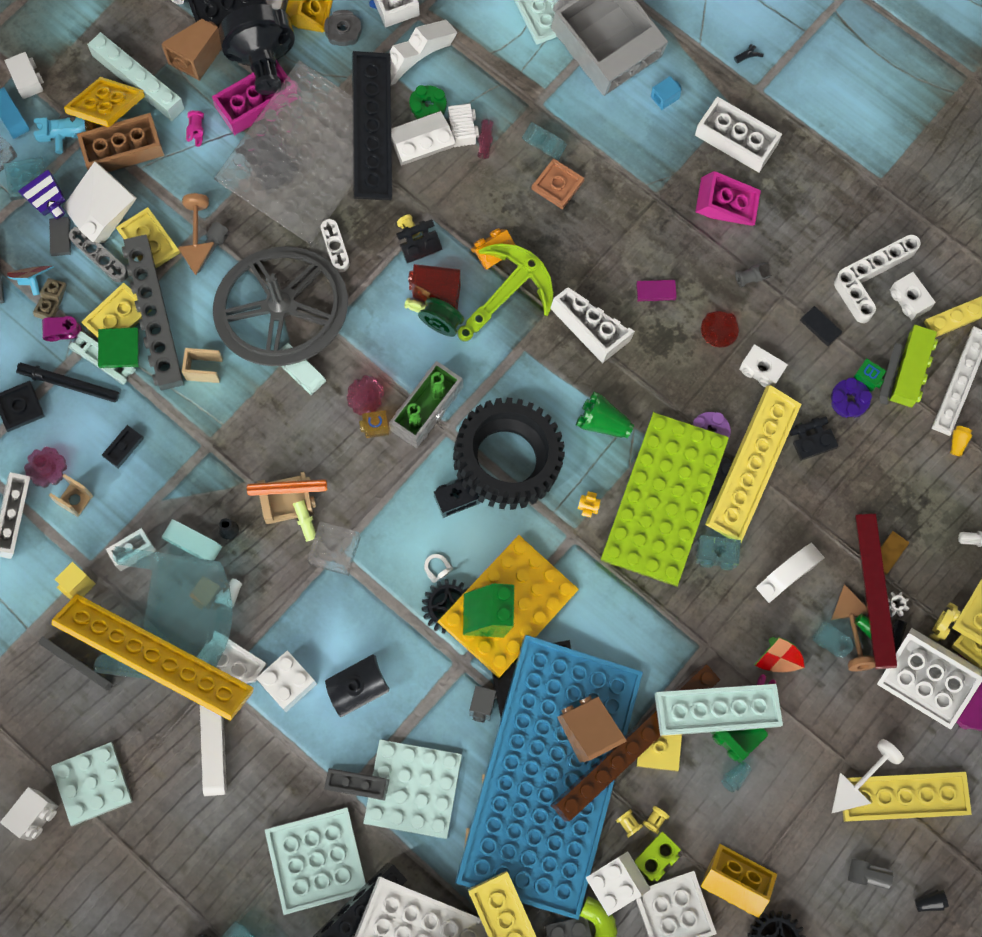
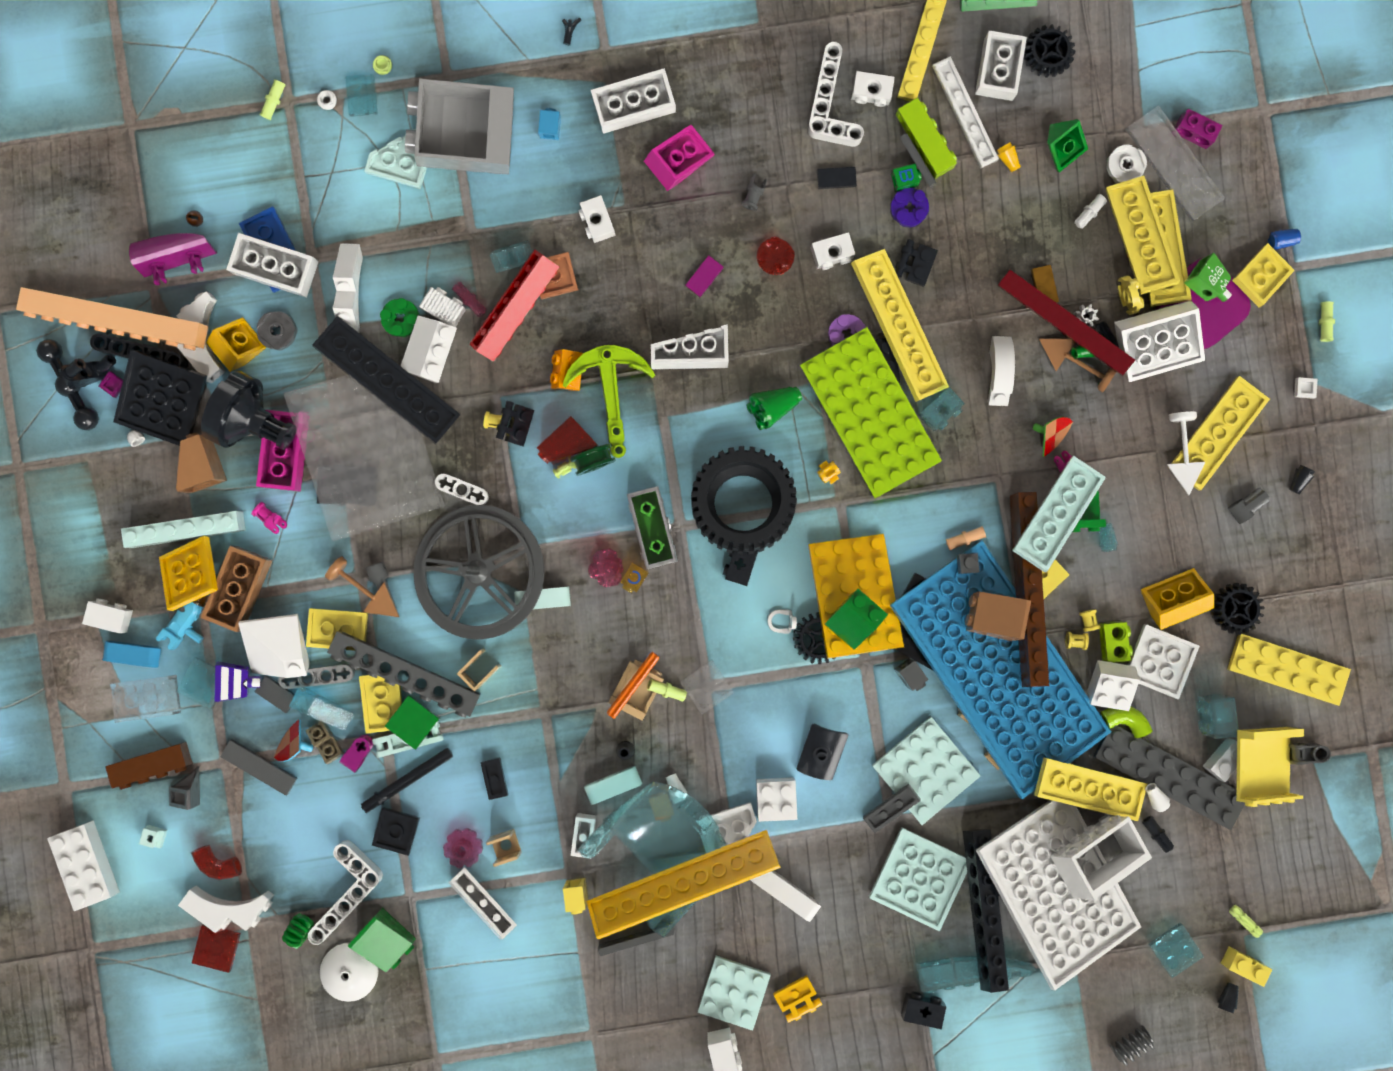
camera: 50 degrees left, 15 degrees up
(74, 275) = (321, 708): none -> clear light blue slope
(130, 835) = (795, 993): none -> yellow plate
(508, 169) = (514, 305): none -> brick
(613, 673) = (968, 563): none -> dark grey plate
(624, 189) = (590, 209): none -> white brick
(633, 658) = (966, 538): none -> light nougat pin
(831, 639) = (1071, 384): clear light blue piece -> none

